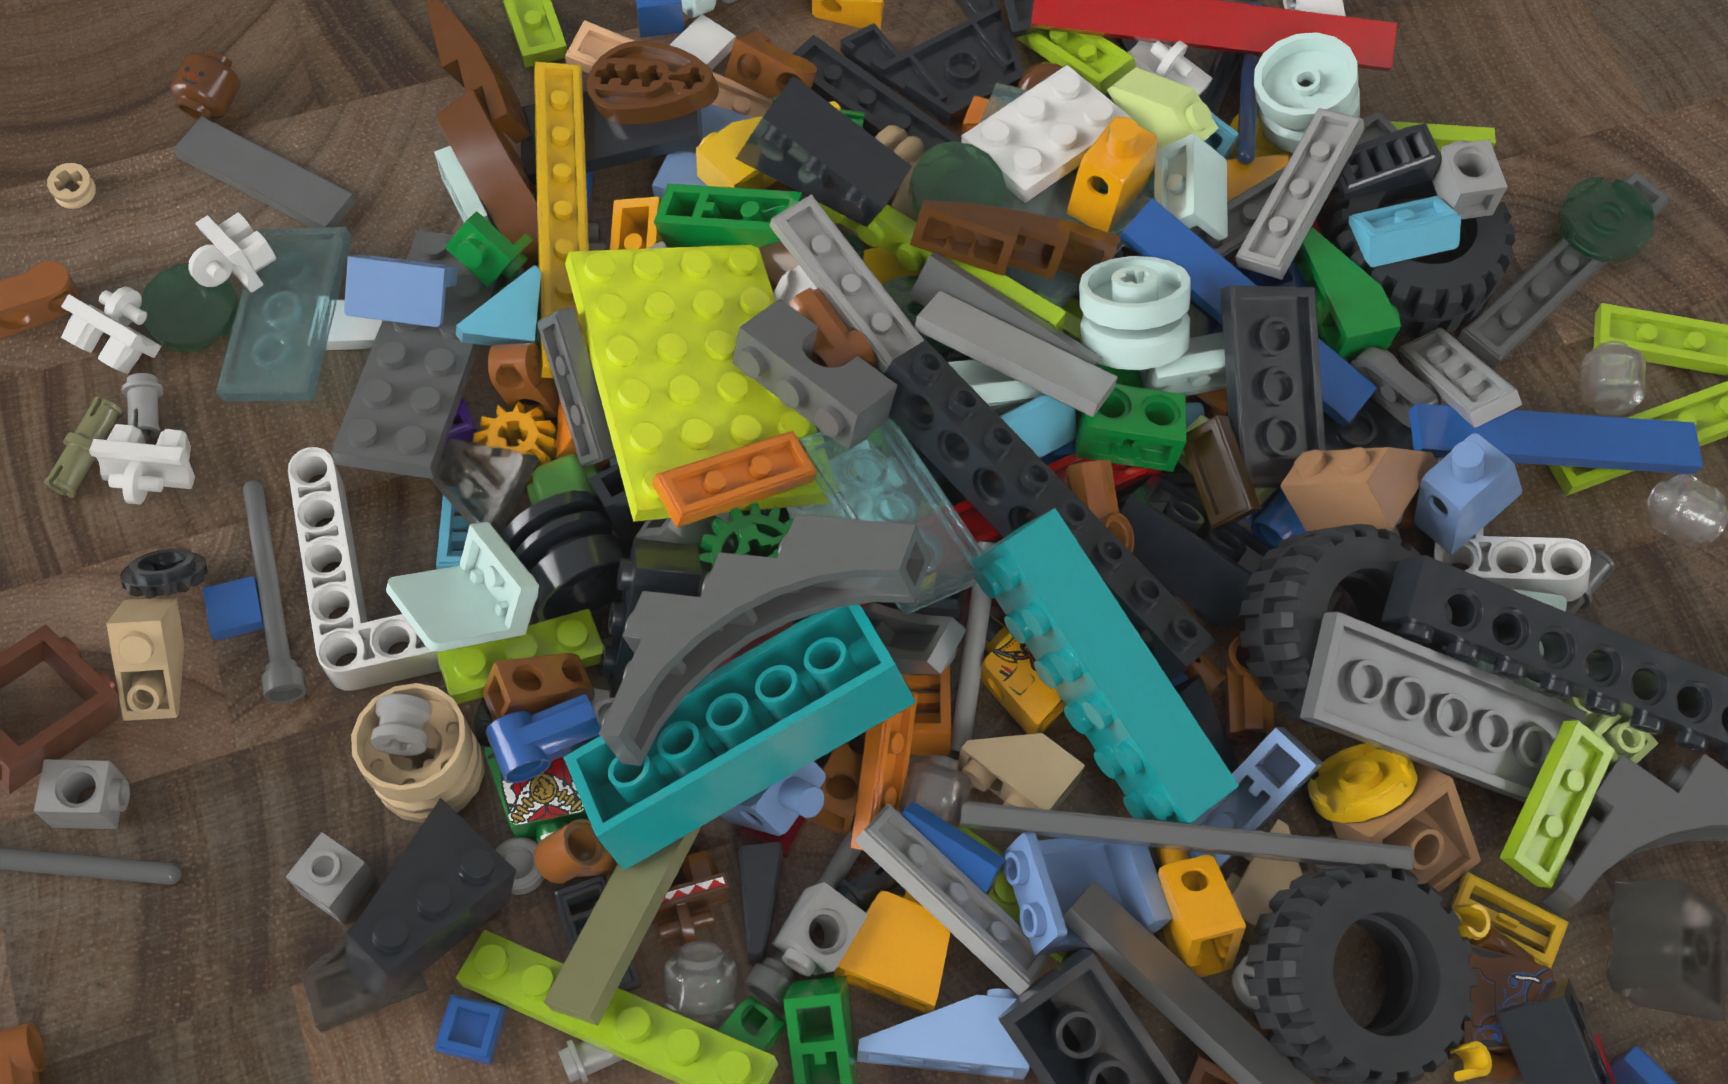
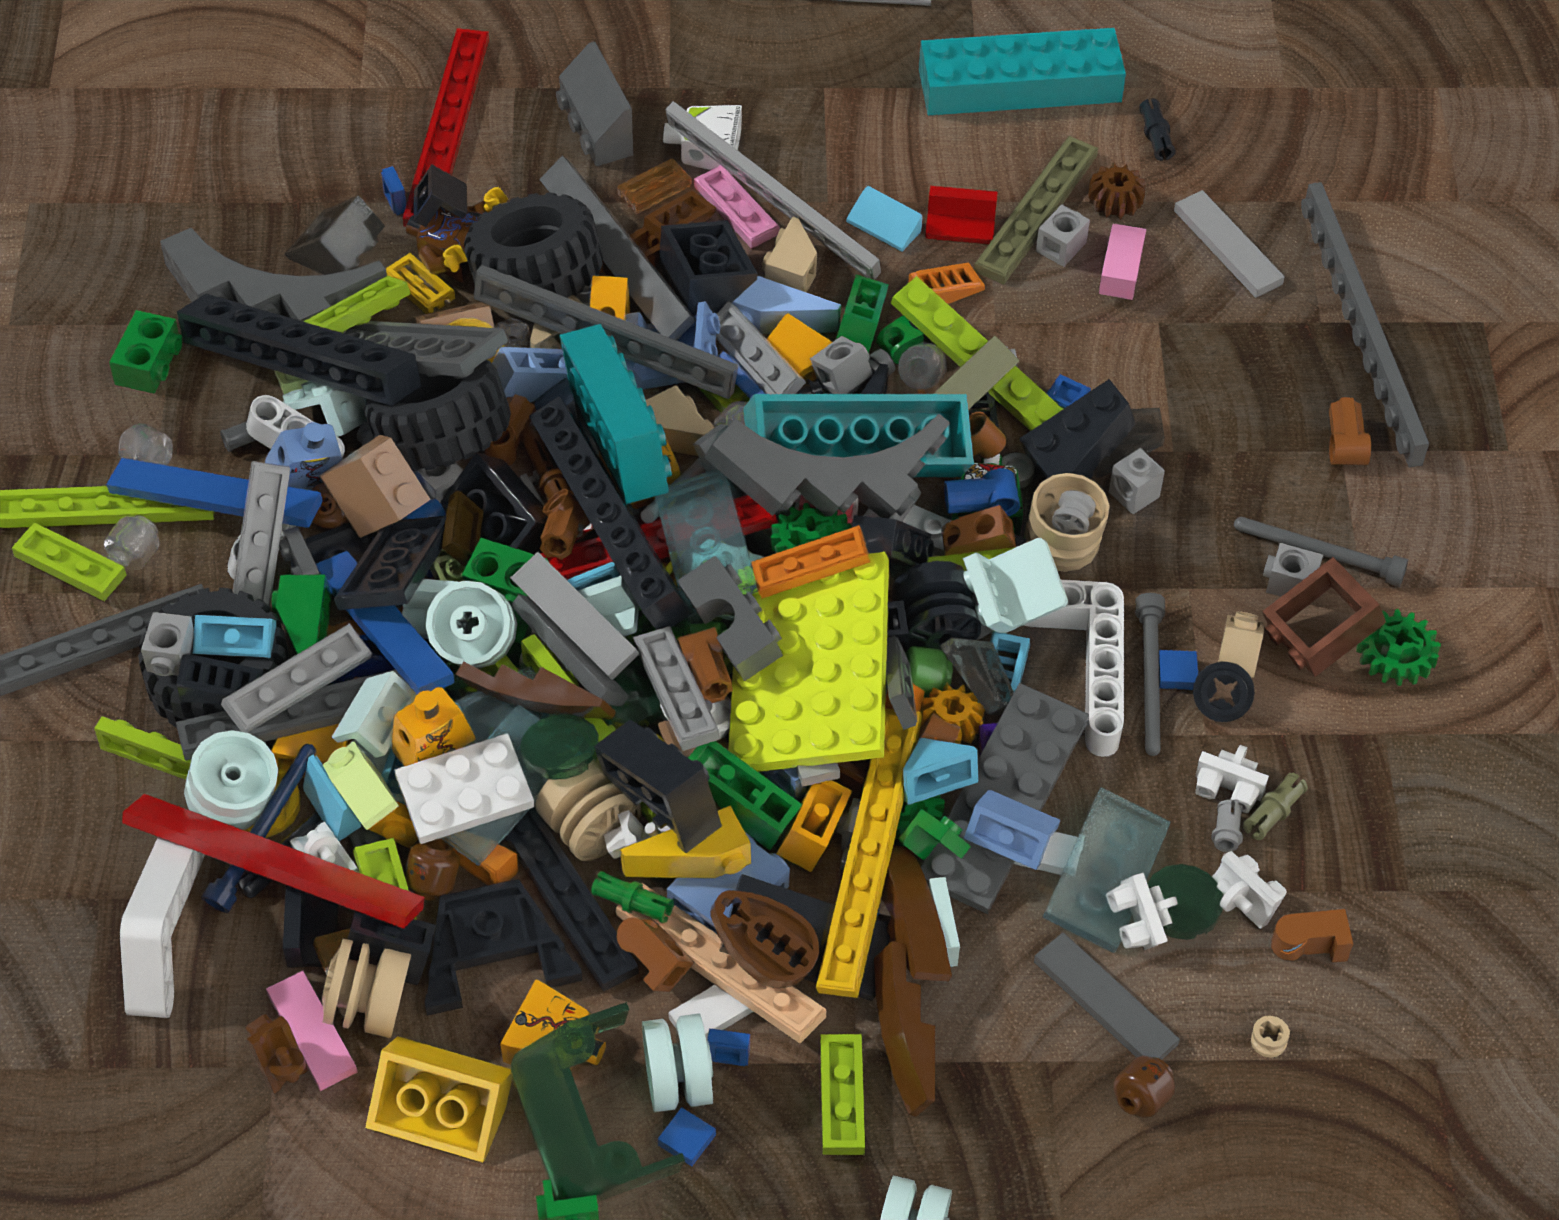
camera: 160 degrees left, 10 degrees down
(1606, 219) = (51, 651): clear green tile -> none

